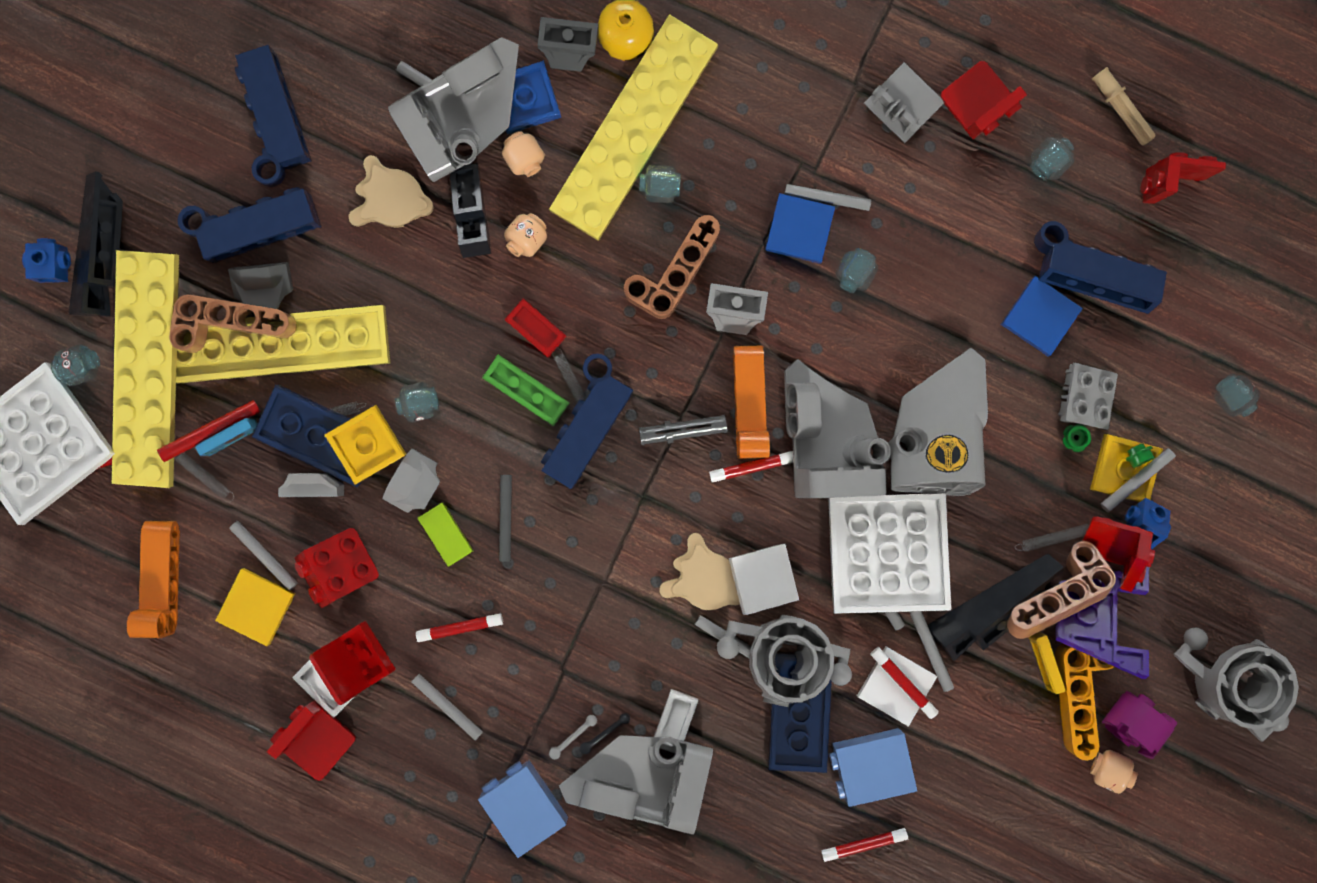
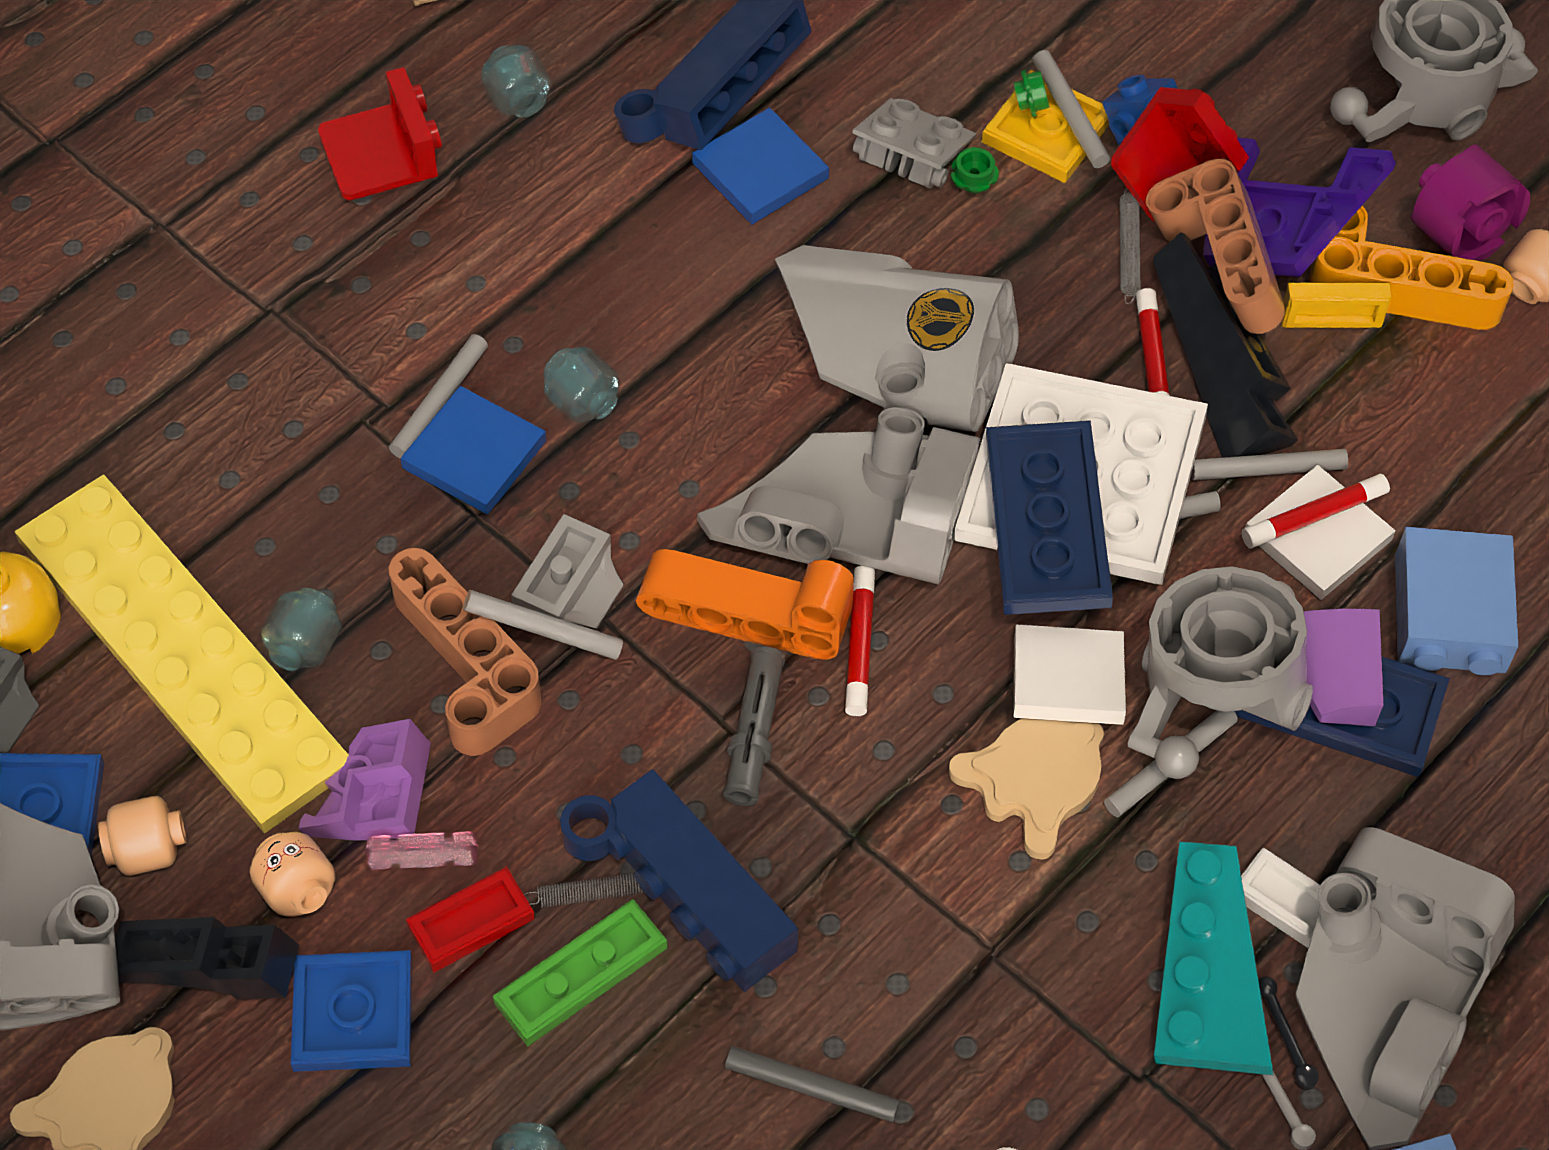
camera: 70 degrees left, 30 degrees down
(471, 290) = (352, 1011): none -> blue tile
(562, 291) = (421, 850): none -> clear pink axle
(589, 256) = (376, 787): none -> medium lavender slope
(618, 691) = (1210, 979): none -> teal wing
(699, 305) = (542, 624): none -> light grey bar
(811, 718) = (1345, 665): none -> medium lavender slope
(850, 544) = (1048, 518): none -> dark blue tile
(904, 102) = (334, 247): light grey hinge -> none
(987, 569) = (1152, 341): none -> red bar

